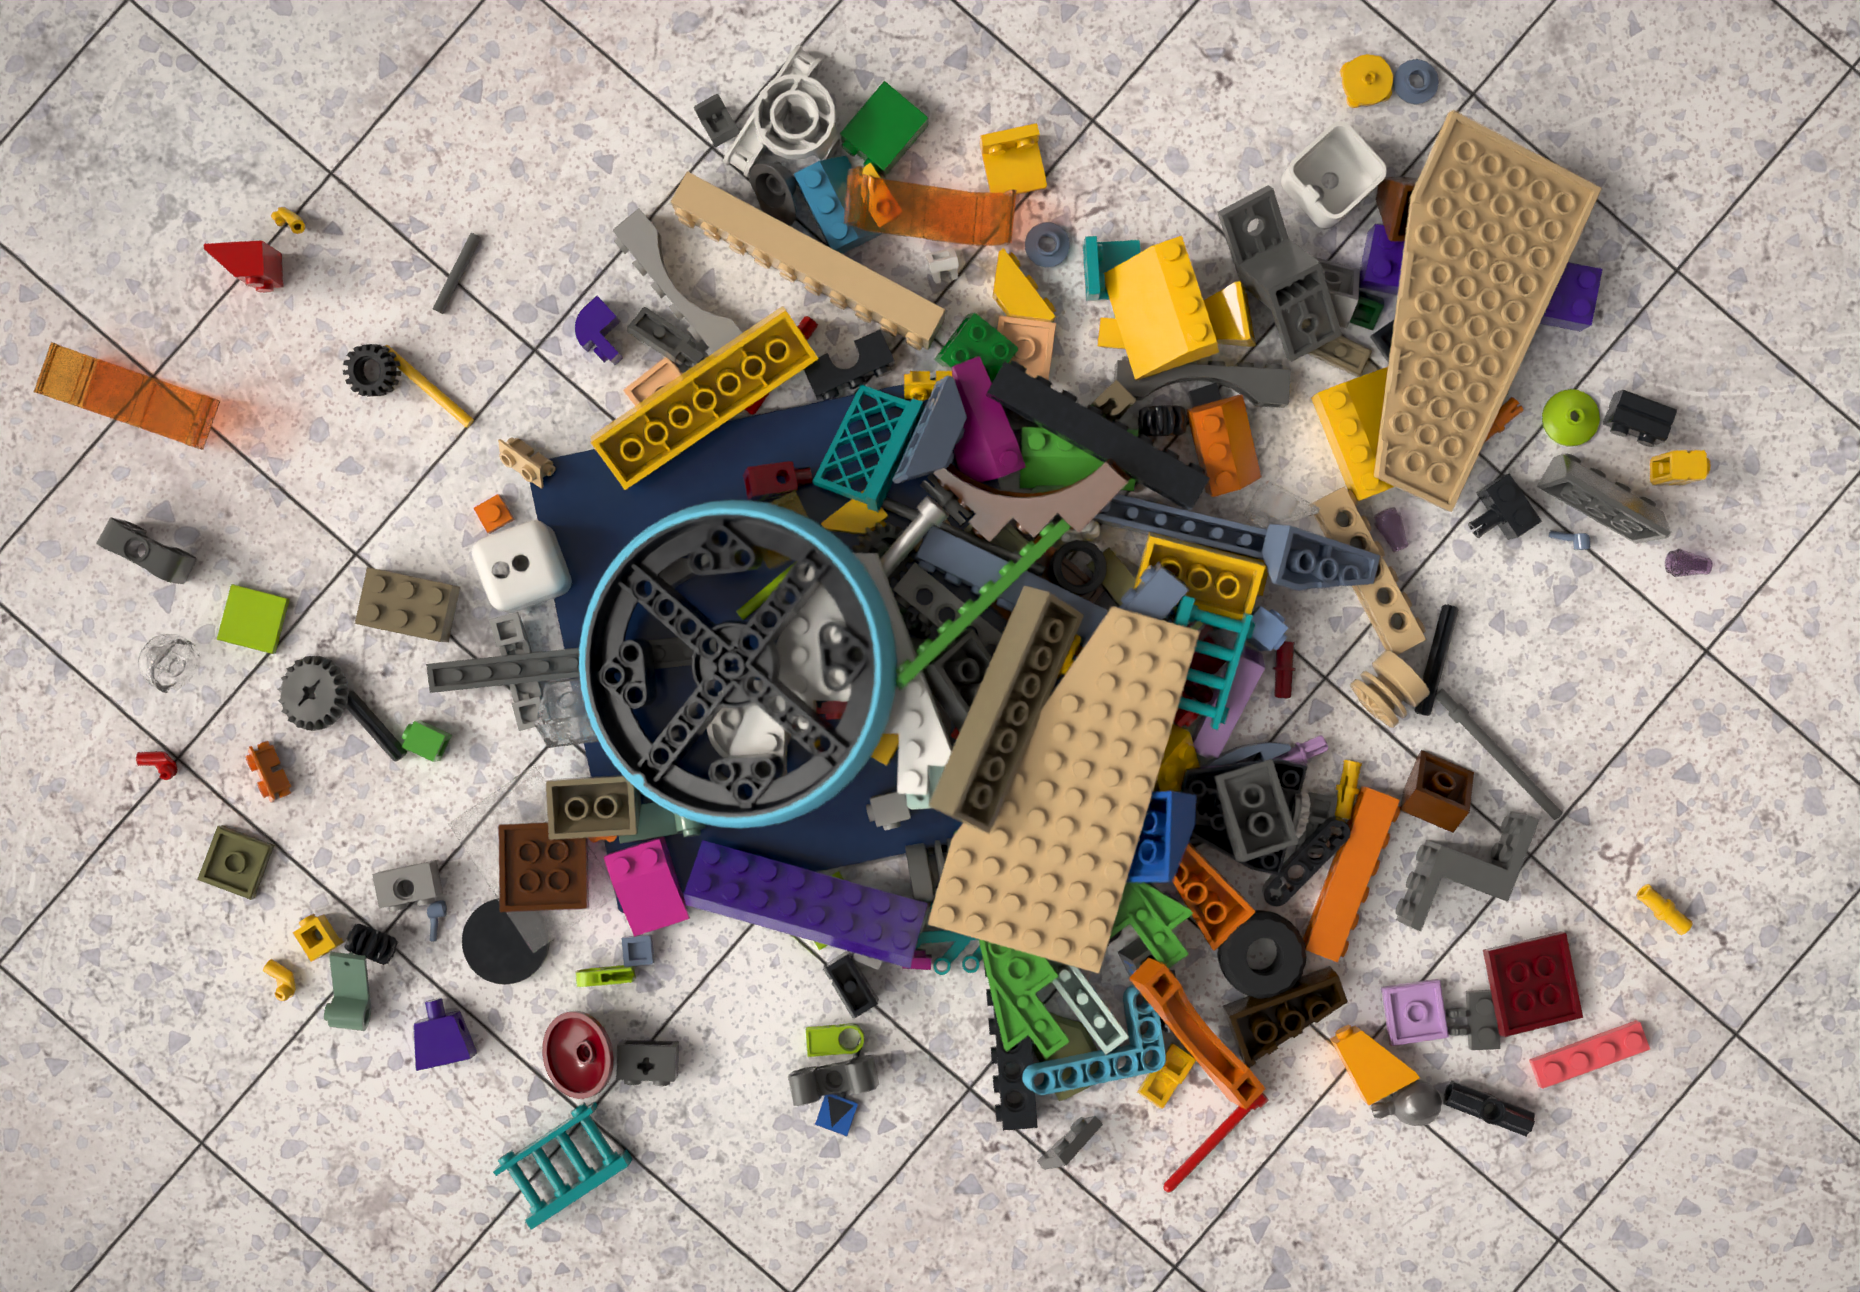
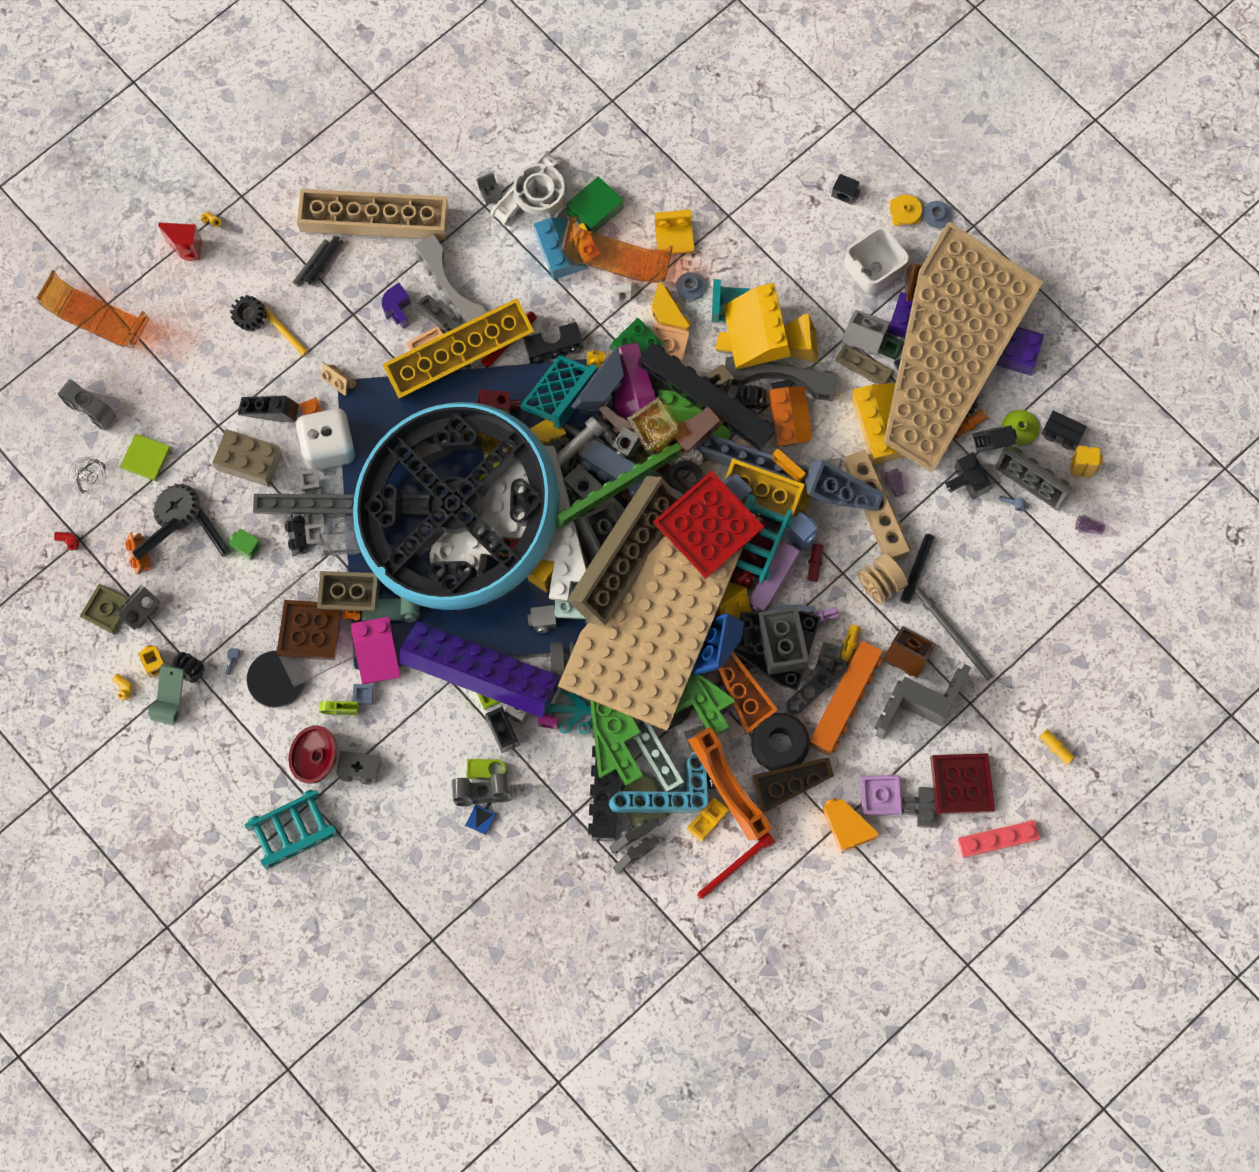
camera: 15 degrees right, 15 degrees down
(275, 858) = (133, 603): none -> dark grey brick
(289, 753) = (156, 538): none -> black axle
(390, 885) = (207, 630): light grey brick -> none
(428, 520) = (269, 408): none -> black slope
(441, 1037) = (223, 735): dark purple torso -> none
(470, 278) = (319, 266): none -> black pin
(503, 726) = (294, 528): none -> black hinge
(539, 184) = (372, 214): none -> tan brick
(774, 190) = (520, 235): flat silver piece -> none
(807, 261) = (536, 277): tan brick -> none
(994, 518) = (627, 433): none -> dark grey brick
(1028, 501) = (655, 425): none -> clear yellow brick
(1061, 1119) = (630, 835): none -> dark grey wing
(1130, 660) = (708, 525): none -> red plate
(1235, 534) = (788, 466): none -> light orange tile
(1272, 57) = (846, 189): none -> black brick
(1280, 273) = (835, 314): dark grey bracket -> none
(1413, 1104) = (874, 857): flat silver hair -> none
(1503, 1115) = (937, 870): black piece -> none
(1545, 455) = (994, 438): none -> black brick

